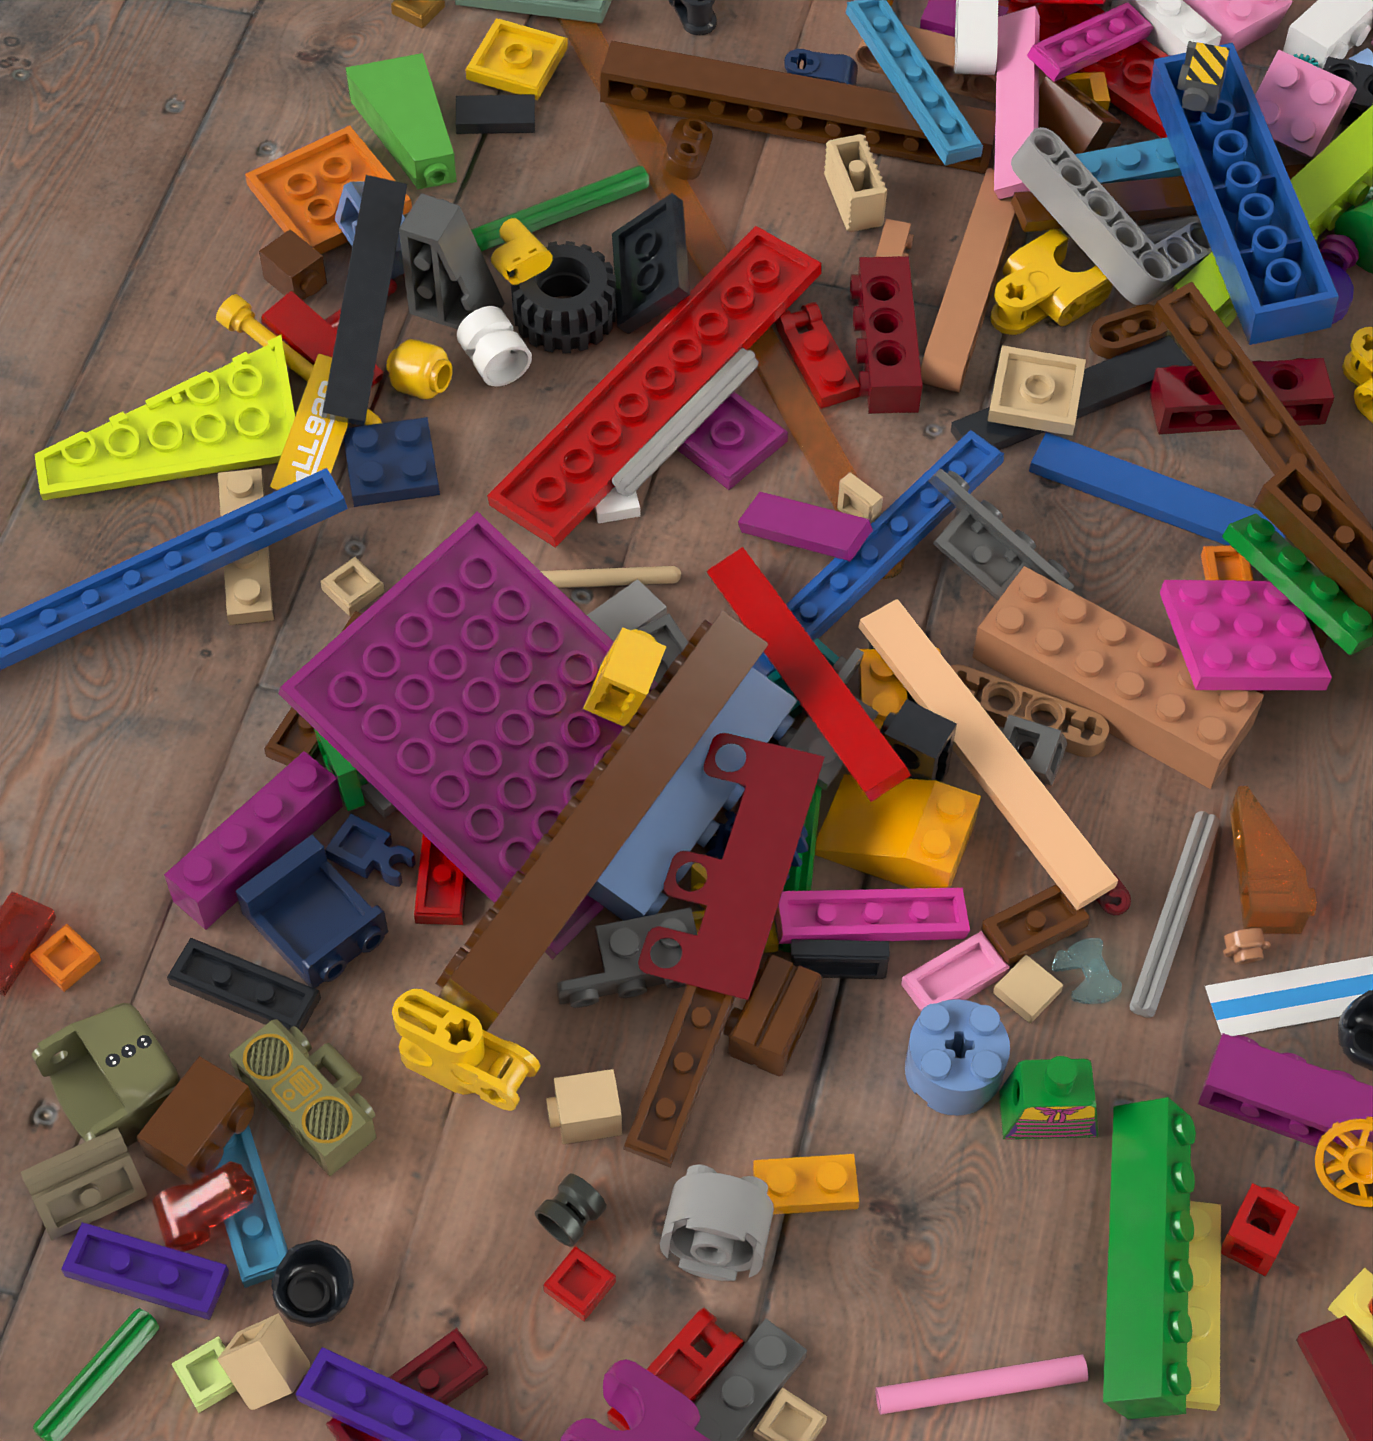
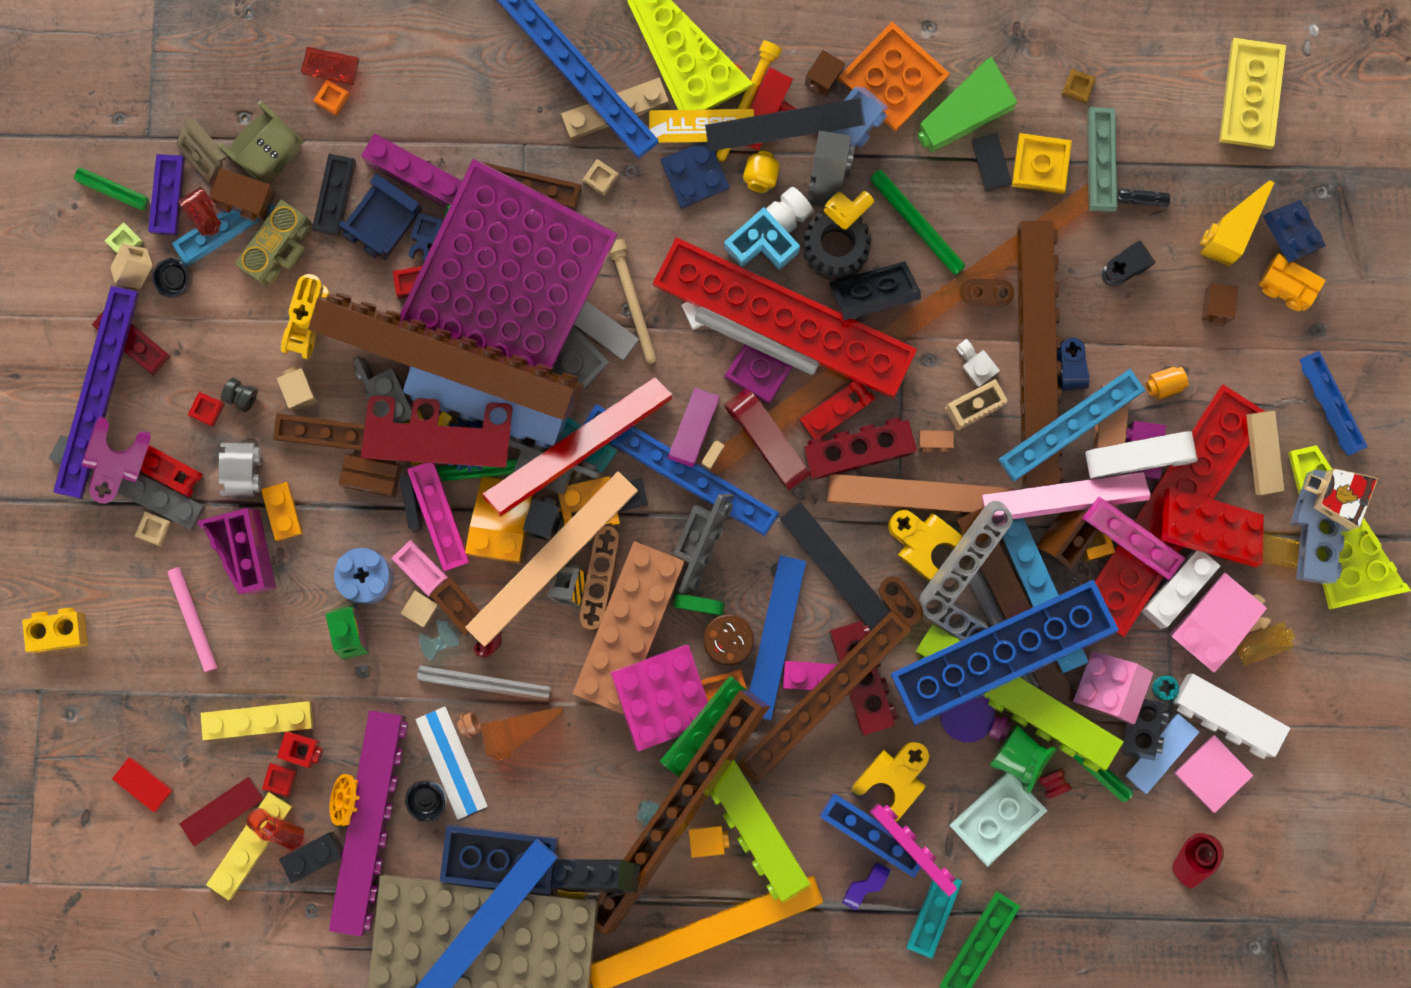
camera: 80 degrees right, 25 degrees up
(528, 379) = (762, 235): none -> medium azure brick
(625, 676) = (531, 345): yellow brick -> none
(791, 182) = (978, 366): none -> white plate
(838, 432) = (767, 438): none -> dark red beam
(868, 1251) = (242, 549): none -> magenta wedge
(1037, 390) = (829, 549): tan plate -> none
(1095, 571) = (698, 604): none -> green beam
(1149, 1260) = (268, 693): green brick -> none
(1154, 548) = (728, 639): none -> reddish brown head
(1203, 76) = (1070, 612): brick -> none
(1226, 462) = (804, 674): none -> dark pink plate
(1309, 1284) = (279, 780): none -> red tile

